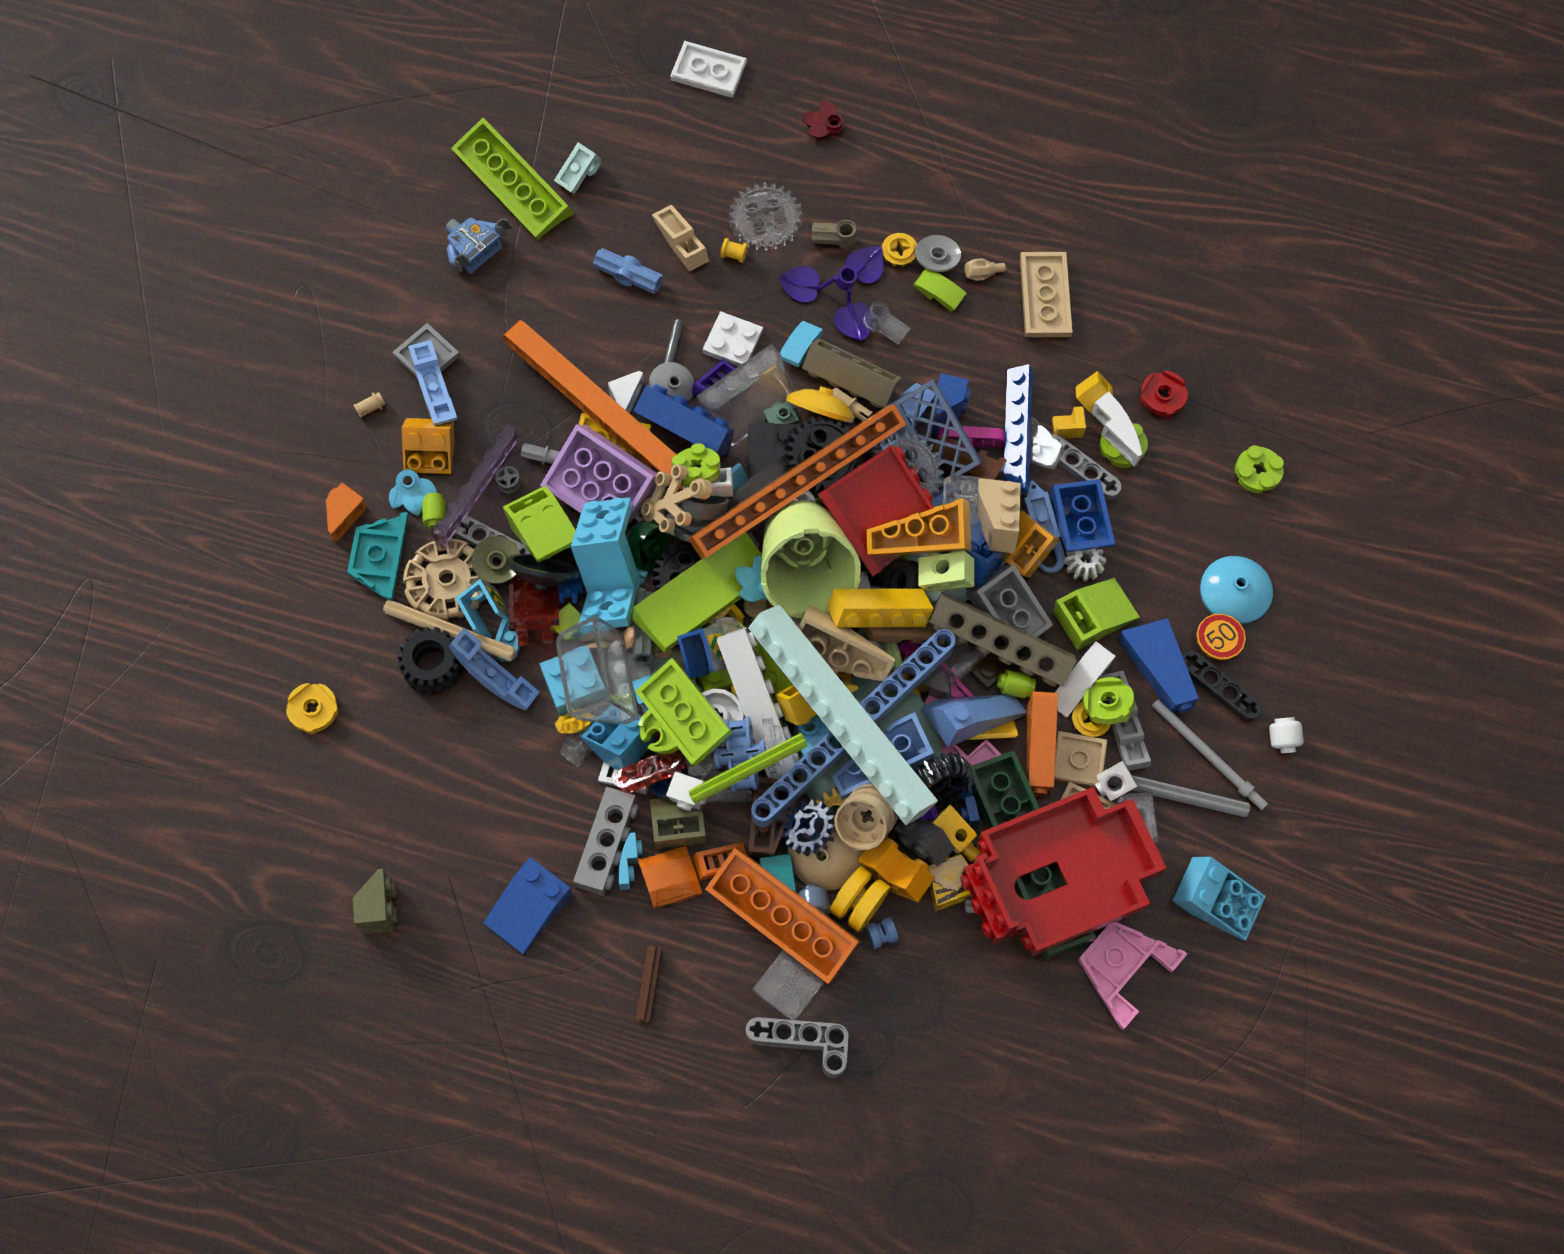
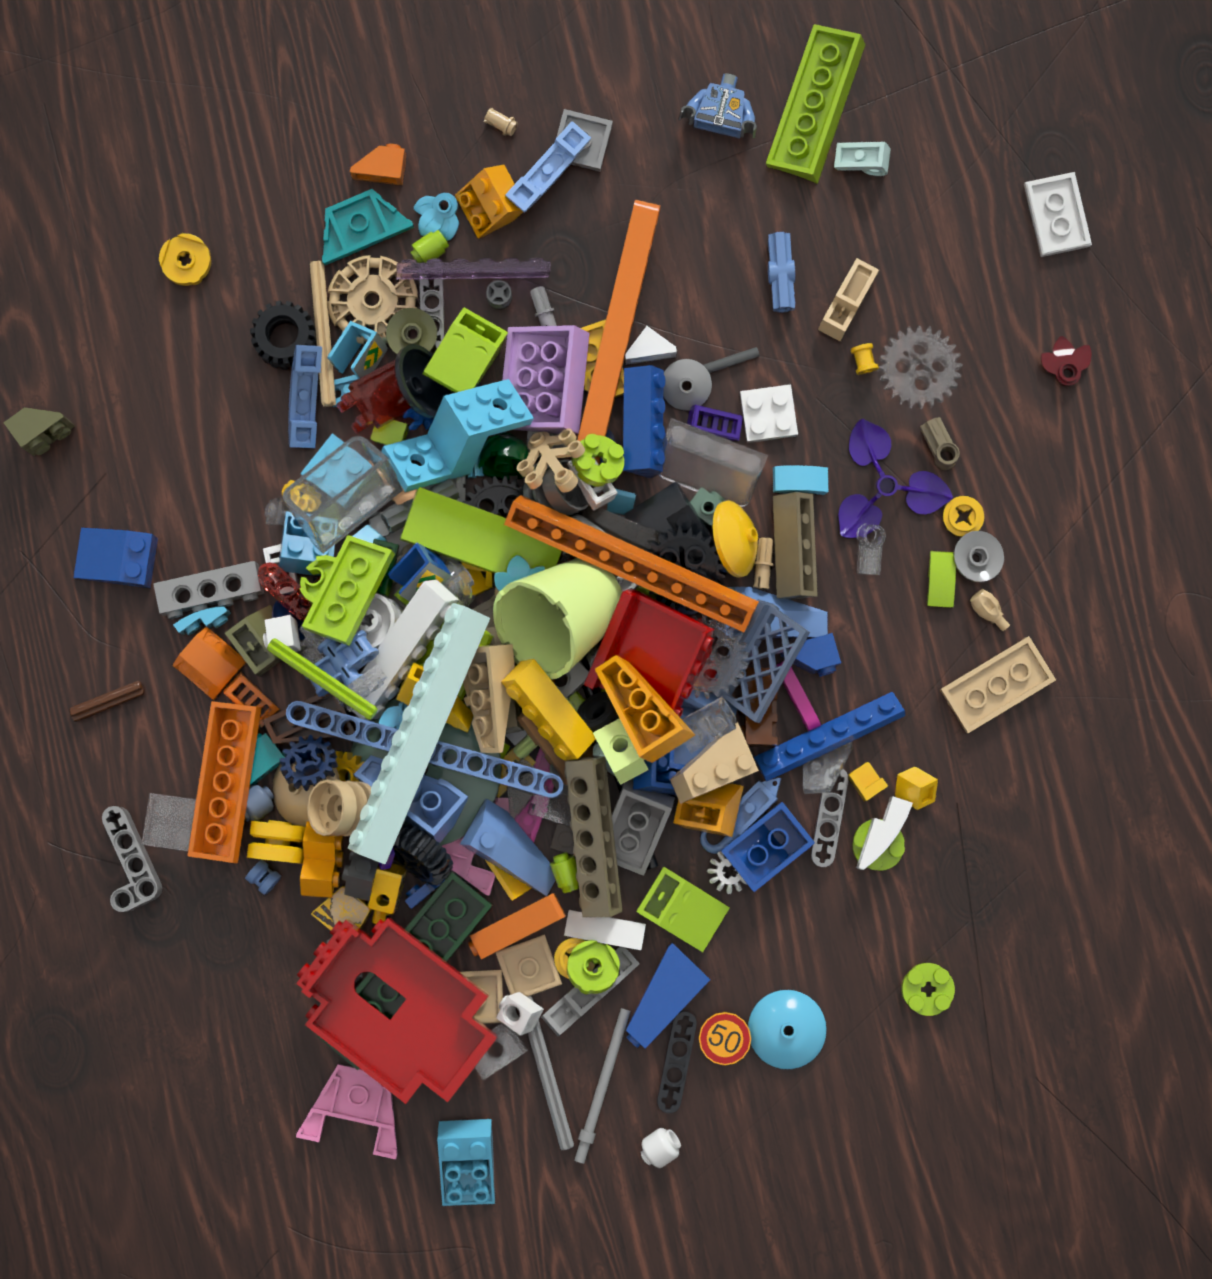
camera: 65 degrees right, 15 degrees up
(1161, 405) = (965, 867): red plate -> none

